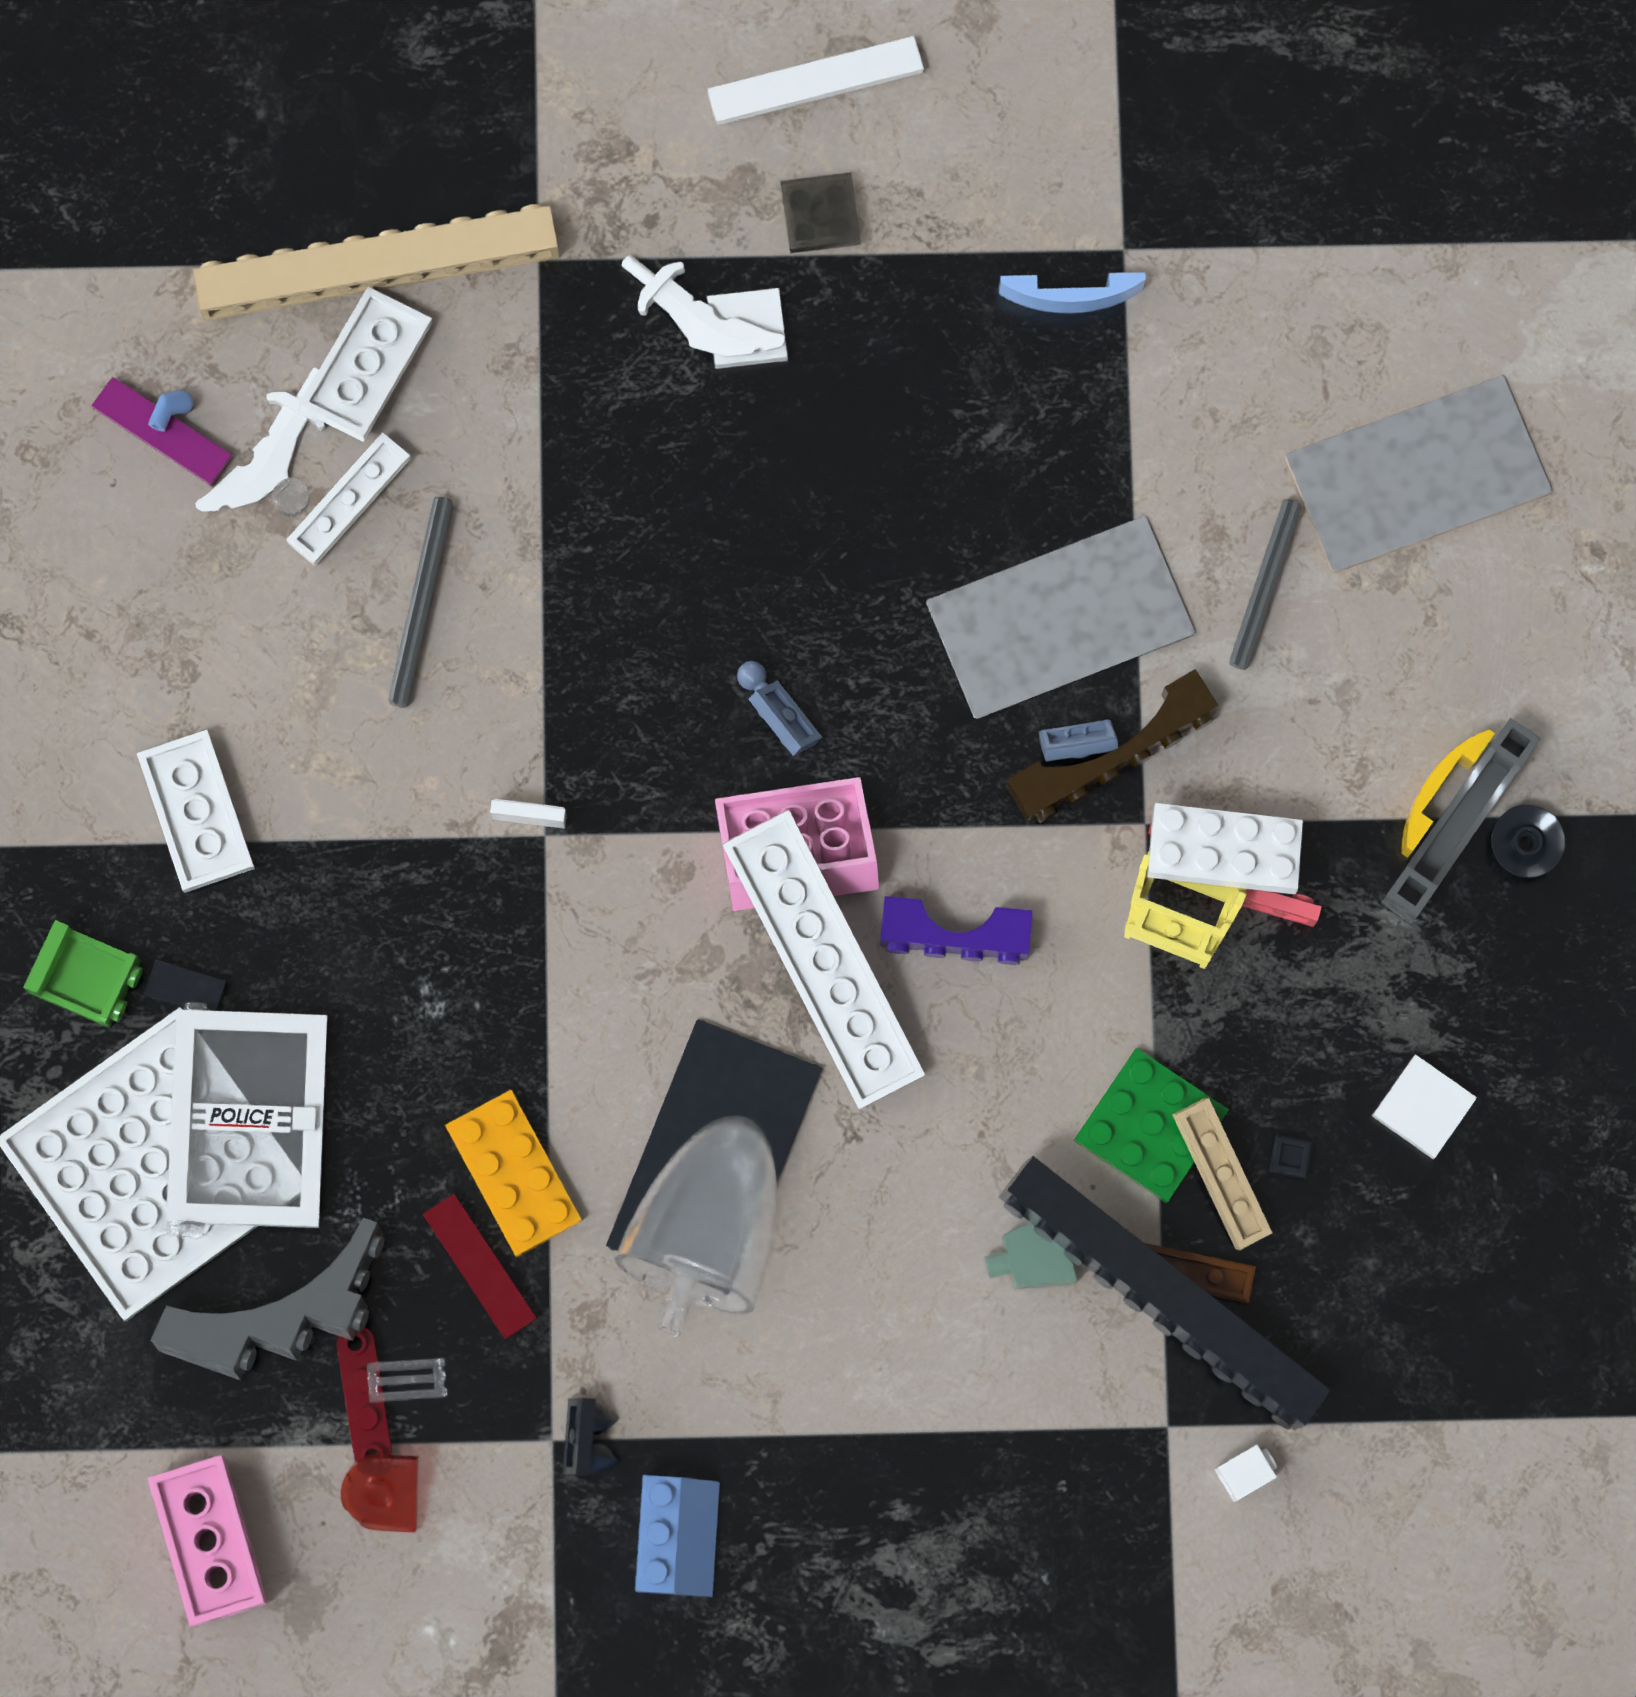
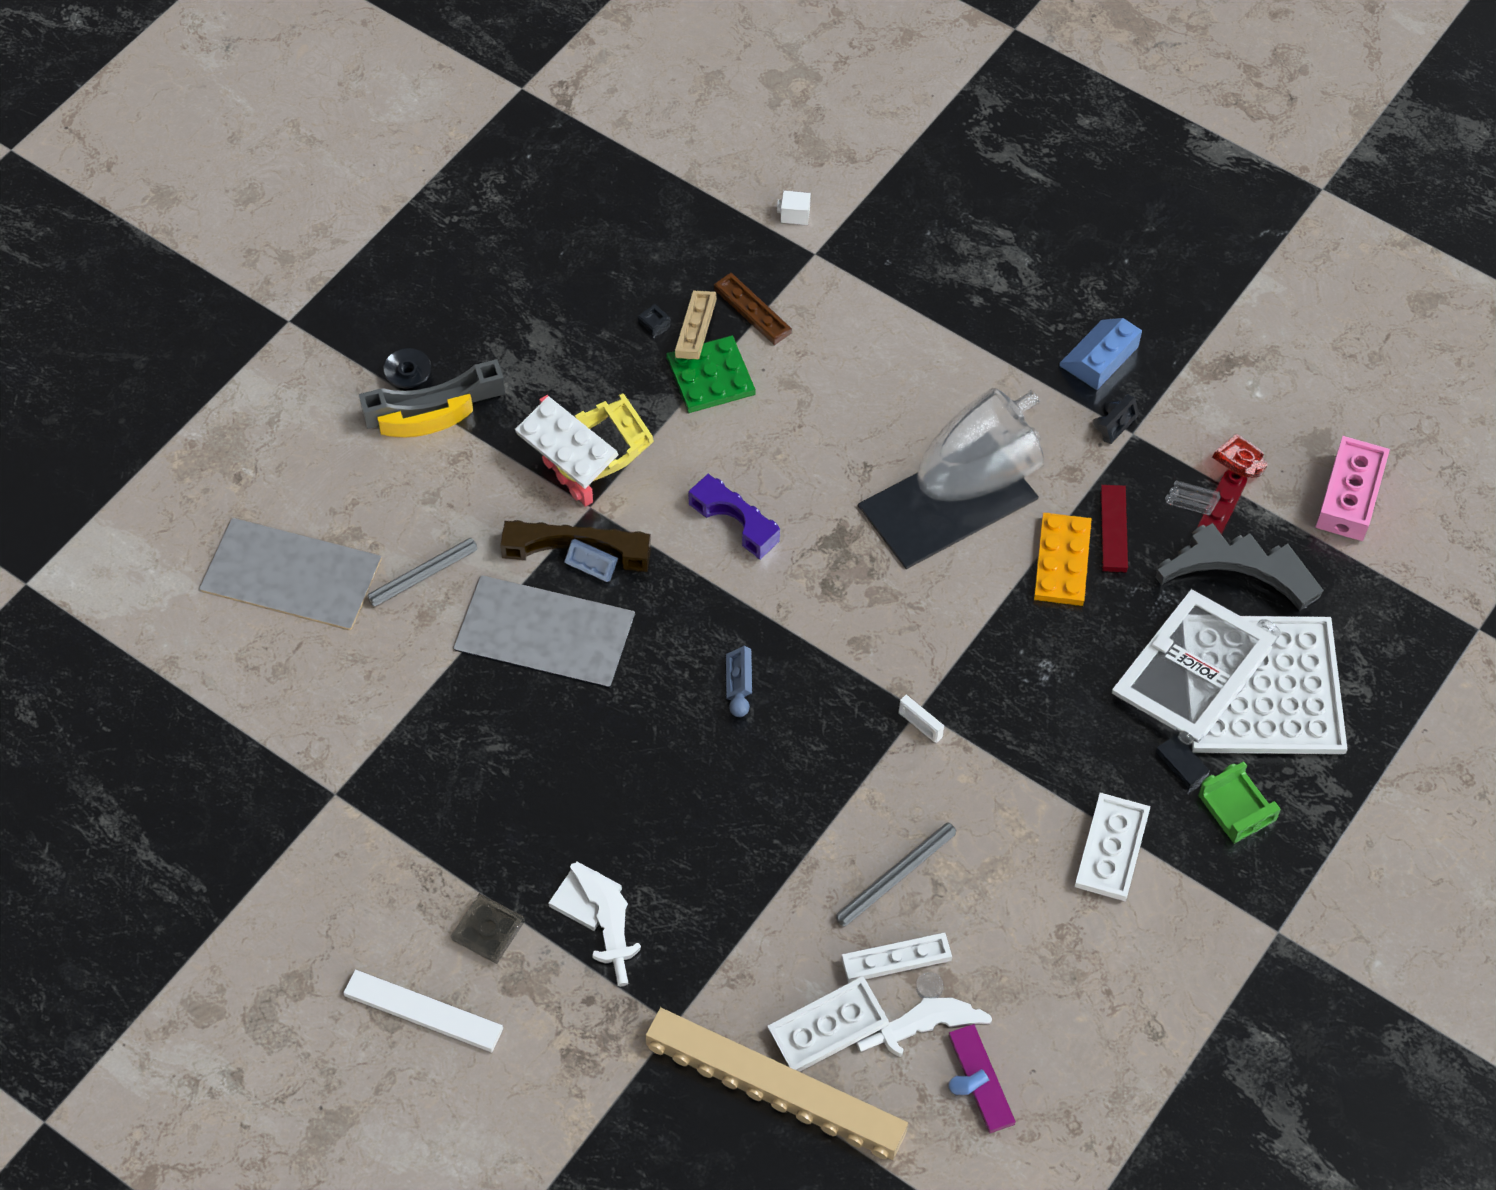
camera: 140 degrees left, 20 degrees down
(823, 959) = (819, 535): white plate -> none
(831, 822) = (783, 610): bright pink slope -> none
(1024, 291) = (362, 767): light blue slope -> none
(1031, 1261) = (819, 352): sand green torso -> none
(1163, 1294) = (772, 292): black brick -> none
(1424, 1106) = (568, 298): white tile -> none

